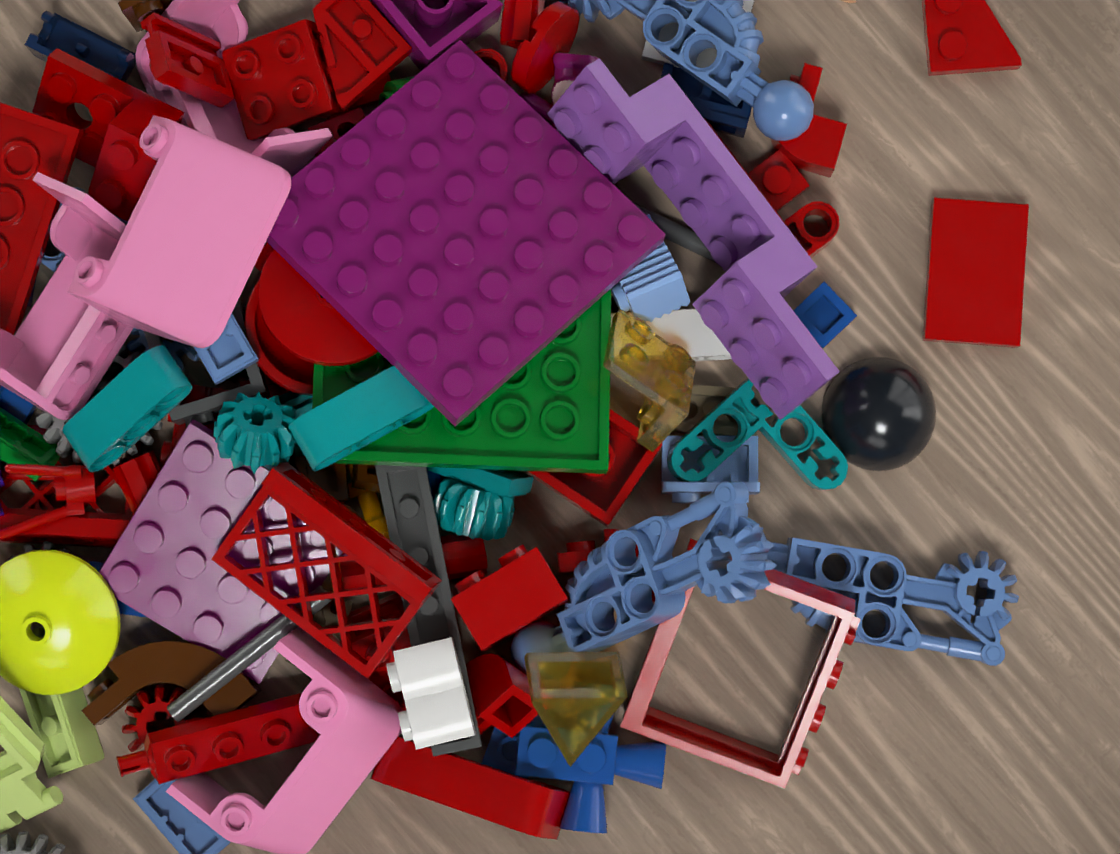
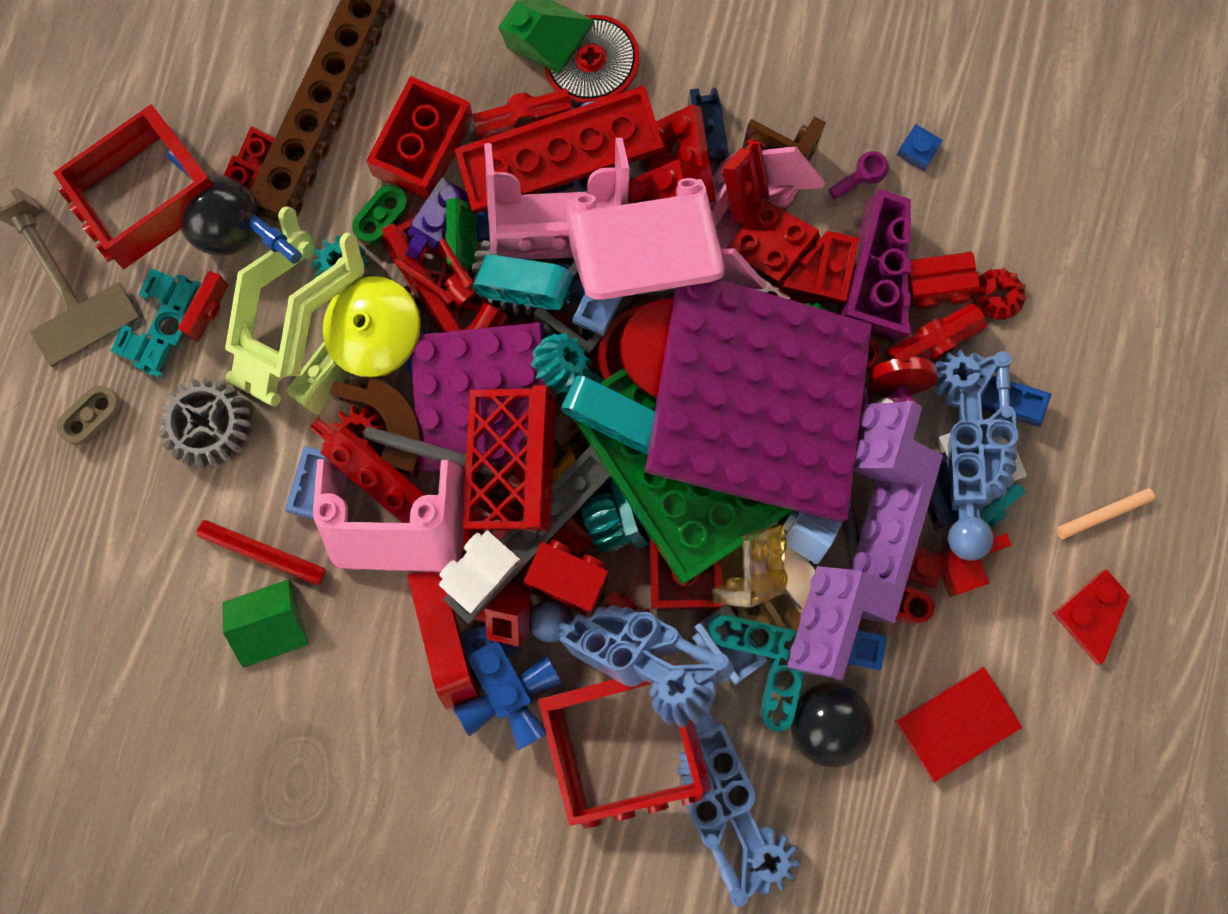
camera: 50 degrees right, 5 degrees down
(575, 695) = (537, 658): clear yellow slope -> none
(771, 55) = (995, 511): none -> teal plate

